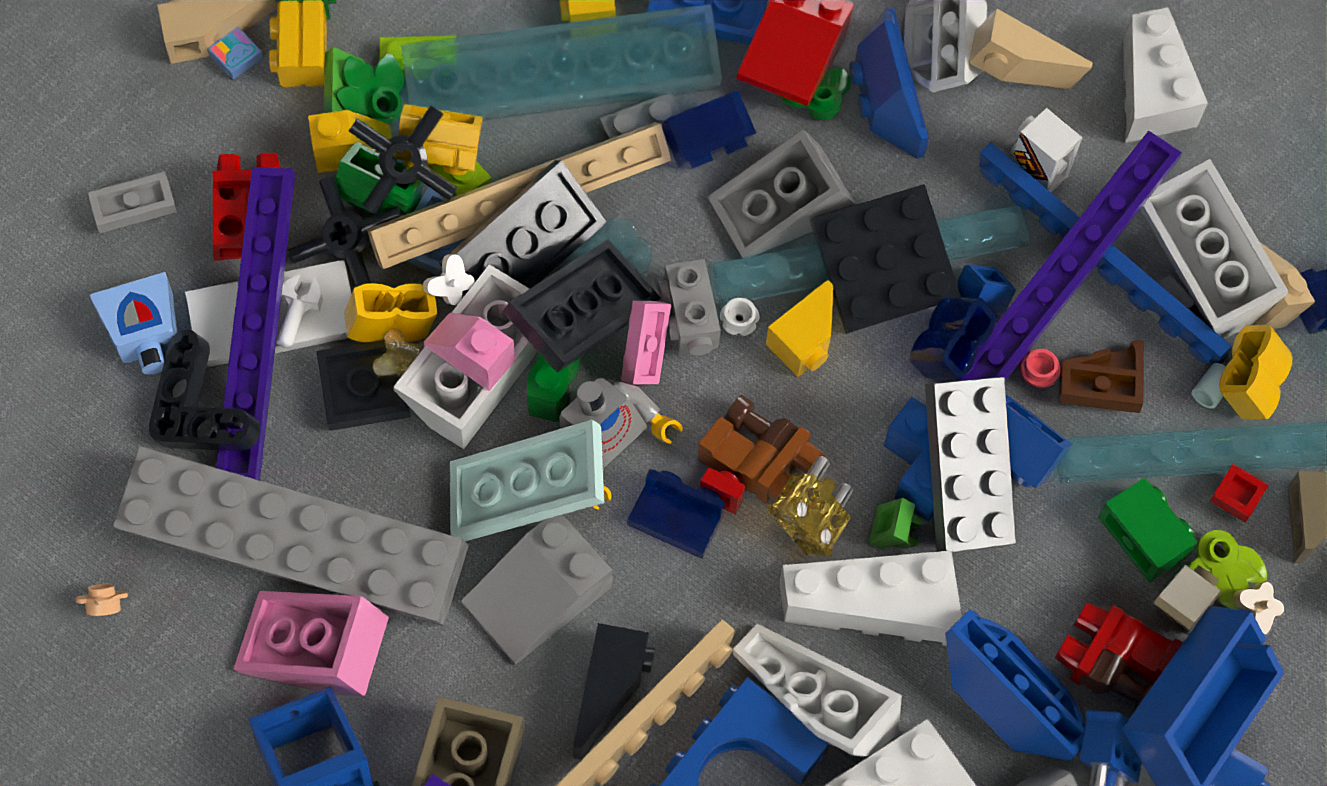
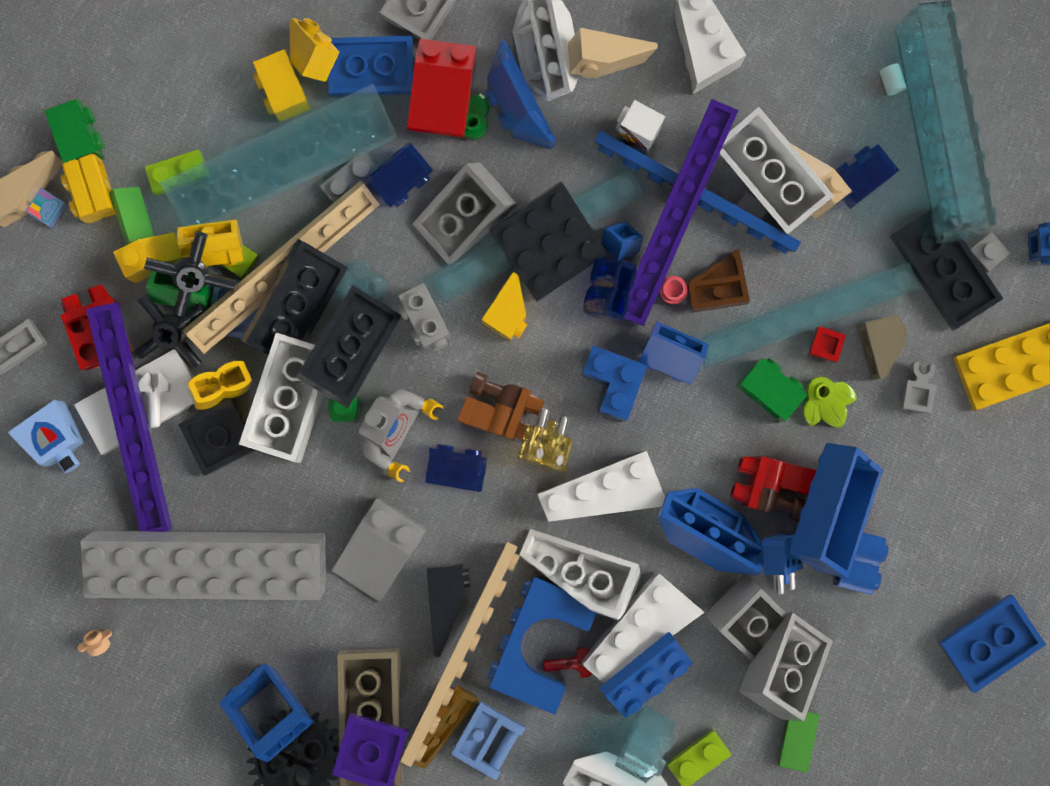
camera: 15 degrees left, 20 degrees up
(189, 416) = (106, 498): black beam -> none
(313, 641) = (243, 631): bright pink slope -> none
(371, 84) = (148, 209): green plate -> none
(398, 354) = (235, 415): clear yellow piece -> none
(451, 281) = (253, 355): white piece -> none
(473, 348) = (282, 404): bright pink slope -> none
(526, 481) = (350, 485): light aqua plate -> none
(645, 342) = (401, 355): bright pink plate -> none
(726, 486) = (482, 442): red plate -> none
(743, 308) = (465, 306): white plate -> none
(893, 525) = (602, 435): bright green tile -> none
(970, 464) = (644, 385): plate -> none
(1188, 596) = (809, 438): slope -> none
(1207, 389) = (793, 269): light aqua hinge -> none
(1256, 372) = (821, 254): yellow brick -> none
(1261, 603) = (857, 421): piece -> none

